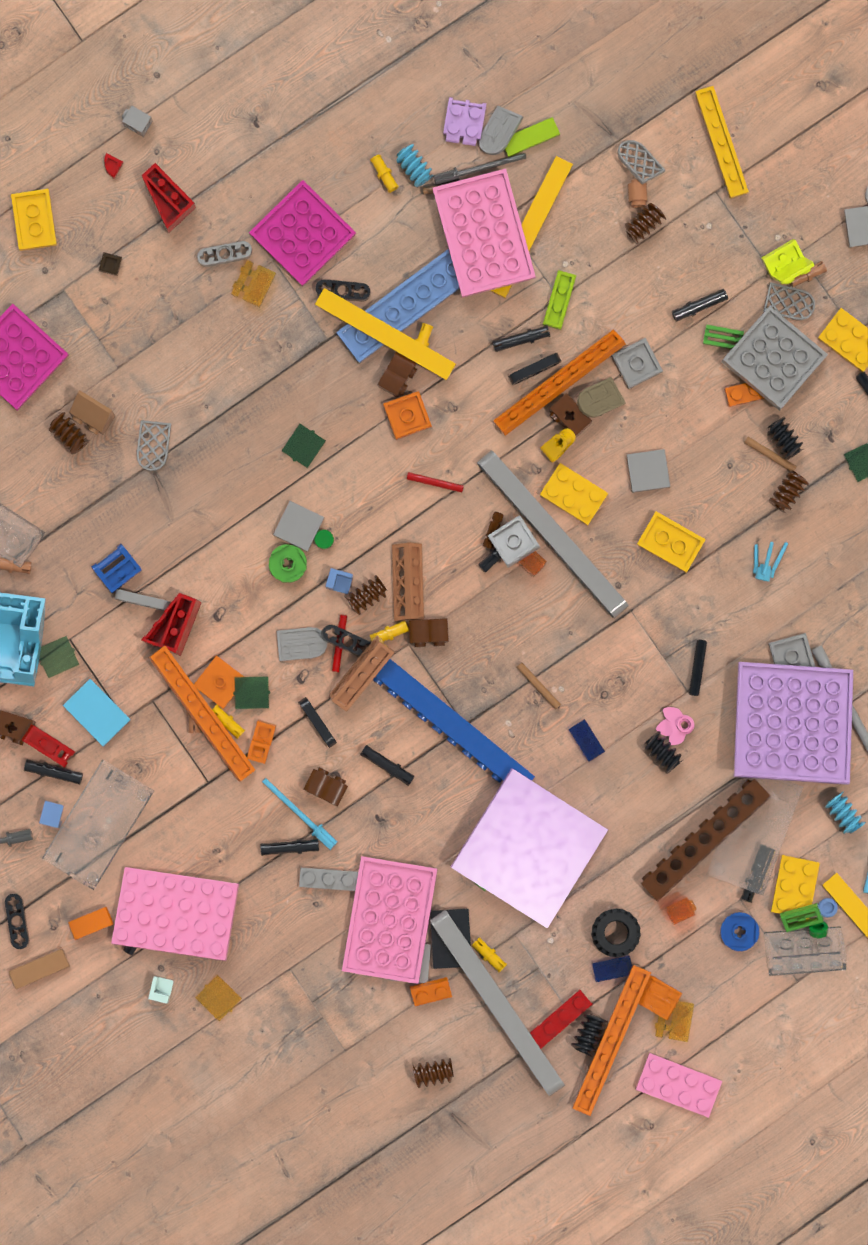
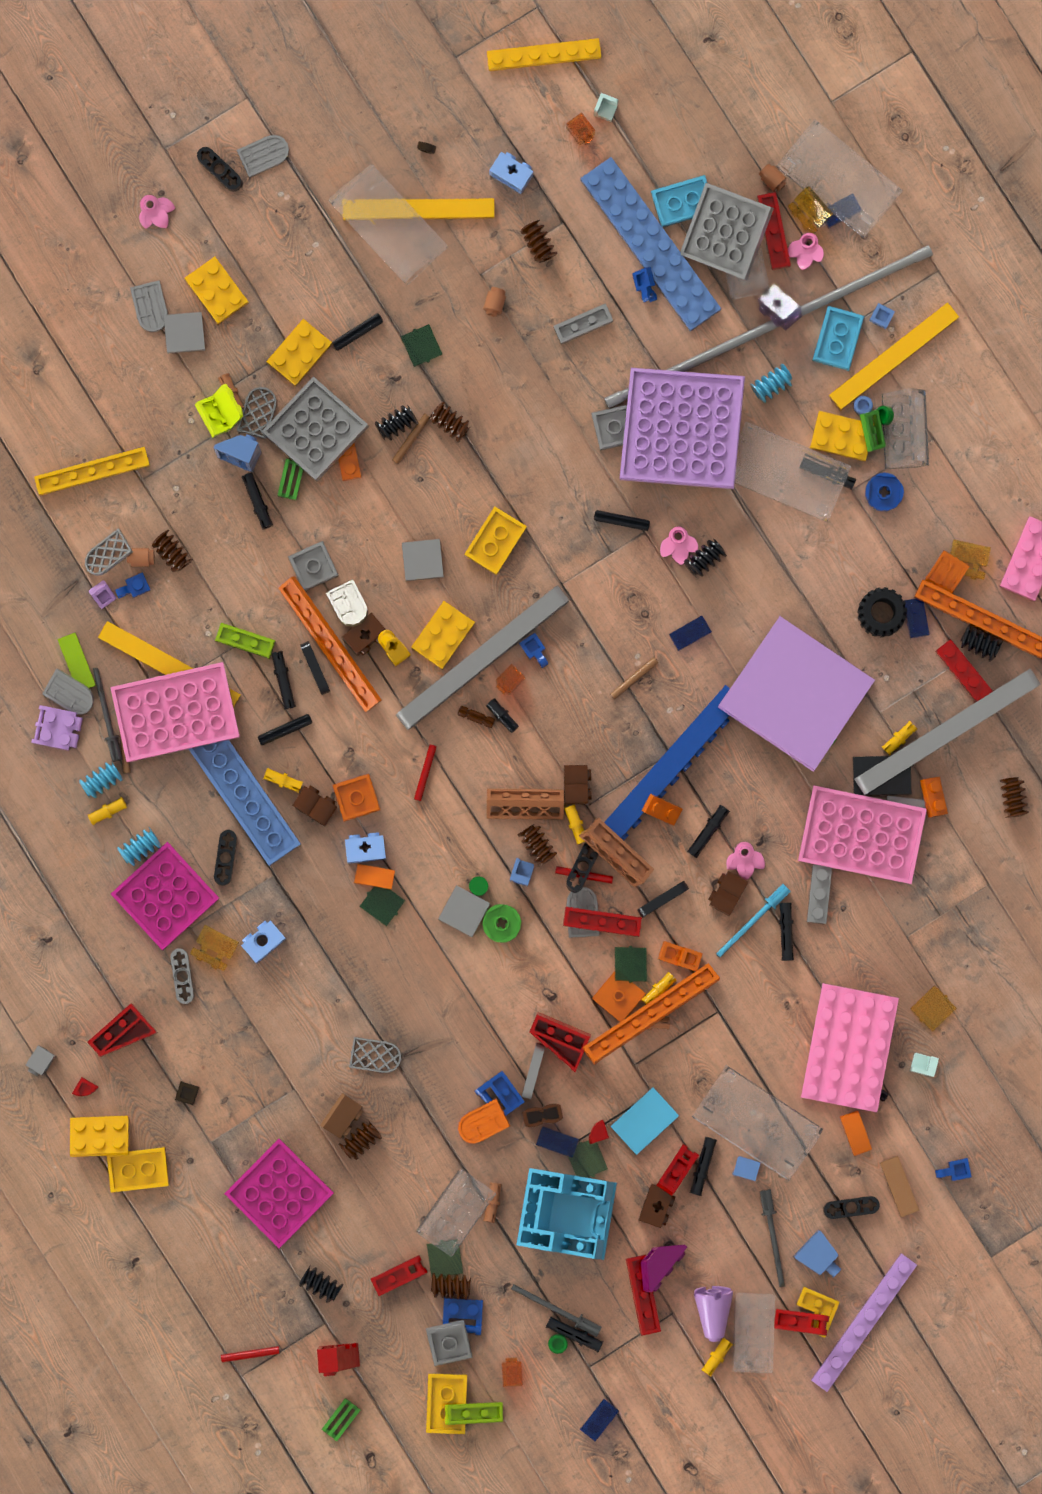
camera: 90 degrees left, 0 degrees up
(57, 1026) = (957, 1170): none -> blue plate
(65, 180) = (99, 1136): none -> yellow plate
(73, 627) = (557, 1142): none -> clear blue plate
(83, 667) = (598, 1132): none -> red tile
(89, 552) = (483, 1122): none -> orange window
(97, 605) = (536, 1116): none -> reddish brown brick
(269, 338) = (258, 952): none -> light blue brick
(292, 662) = (602, 921): none -> red plate
(329, 436) = (374, 876): none -> orange slope
(349, 206) = (139, 847): none -> medium azure piece
(353, 436) = (356, 855): none -> light blue brick
(357, 803) = (745, 863): none -> bright pink plate
(385, 334) = (273, 815): yellow tile -> none
(406, 717) = (662, 809): none -> orange plate
(472, 342) = (285, 729): none -> black axle
(514, 541) = (490, 695): light grey tile -> none
(564, 583) = (533, 648): none -> blue plate
(599, 158) = (102, 594): none -> lavender slope
(608, 190) = (136, 586): none -> blue plate
(681, 910) = (862, 548): clear orange brick -> none
(747, 285) = (239, 451): none -> medium blue slope
(750, 787) = (841, 568): reddish brown brick -> none
(765, 572) = (529, 449): medium azure plant -> none

